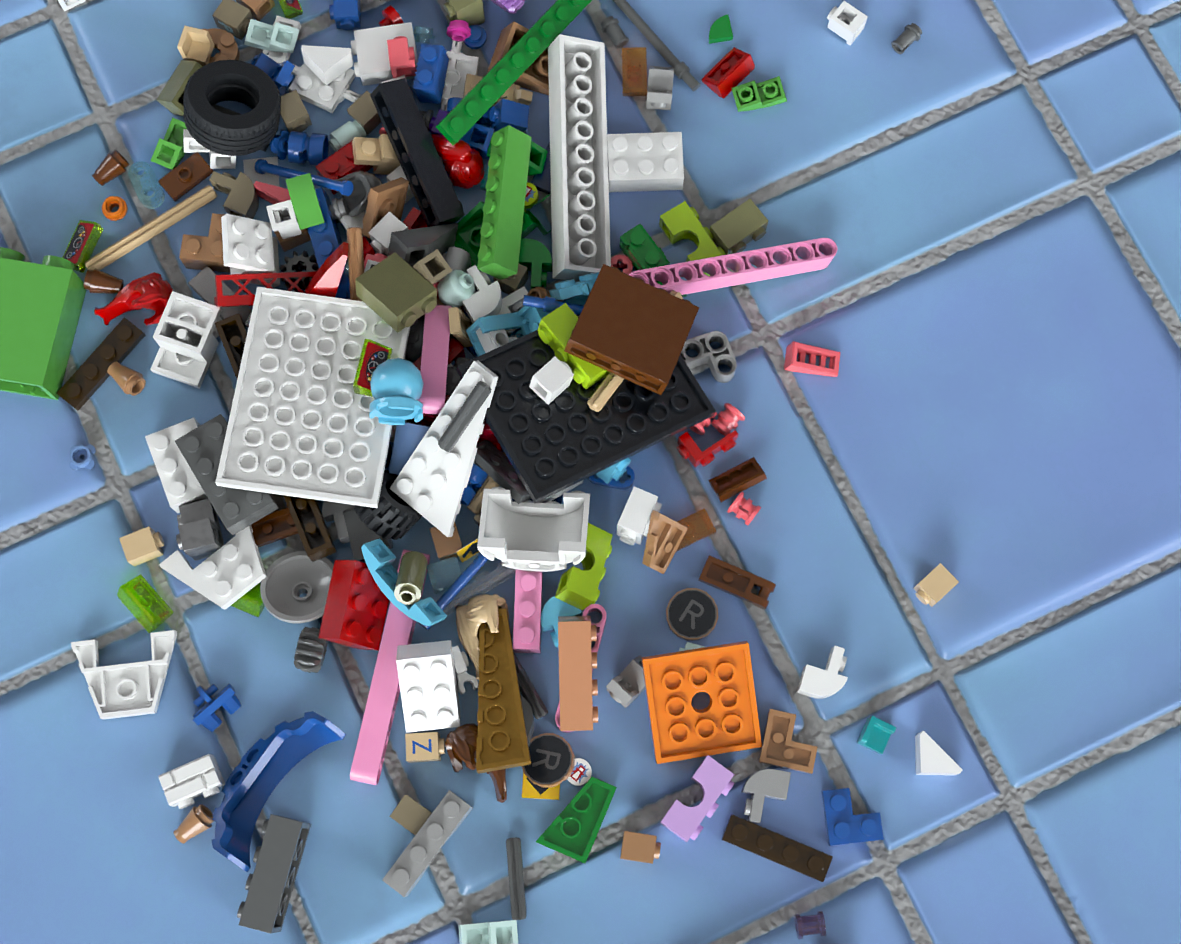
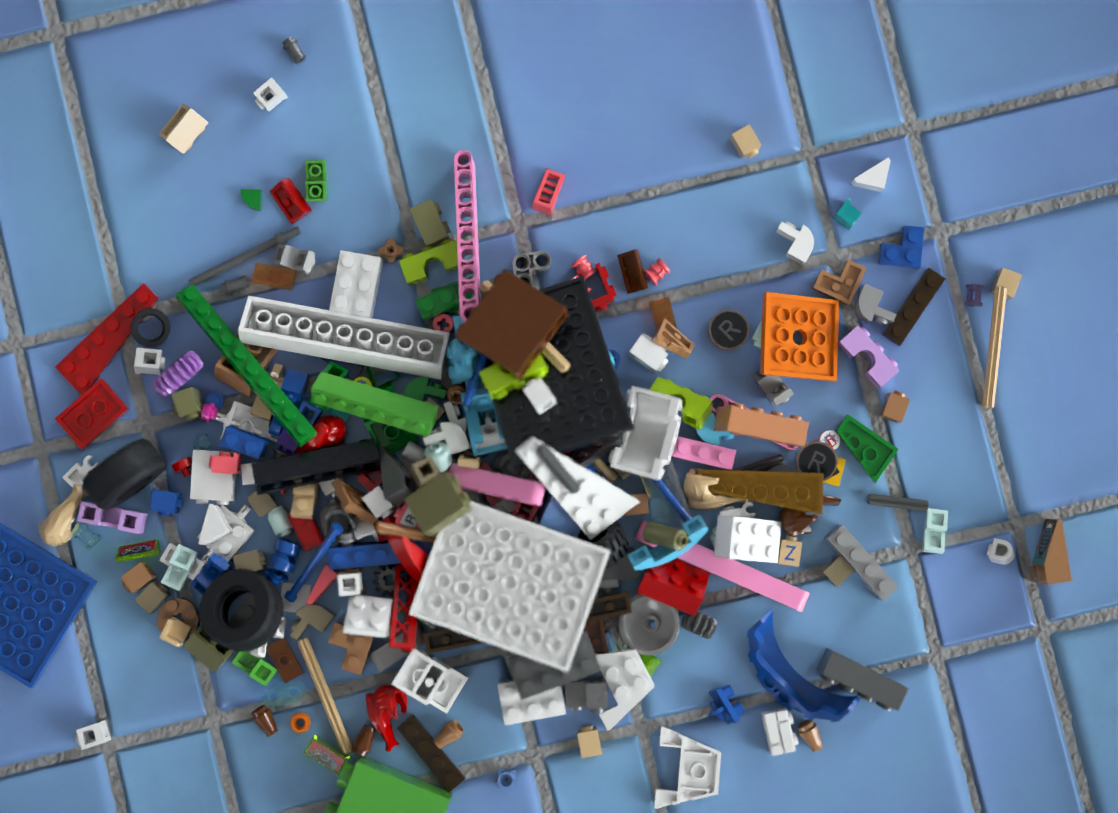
camera: 75 degrees left, 10 degrees up
(144, 603) = (633, 747): clear neon green slope -> none
(305, 201) = (340, 563): bright green slope -> none
(371, 356) = (499, 533): slope -> none
(396, 392) = (523, 517): medium azure tile -> none
(697, 201) = (391, 256): none -> medium nougat plate
(736, 582) = (711, 291): reddish brown plate -> none

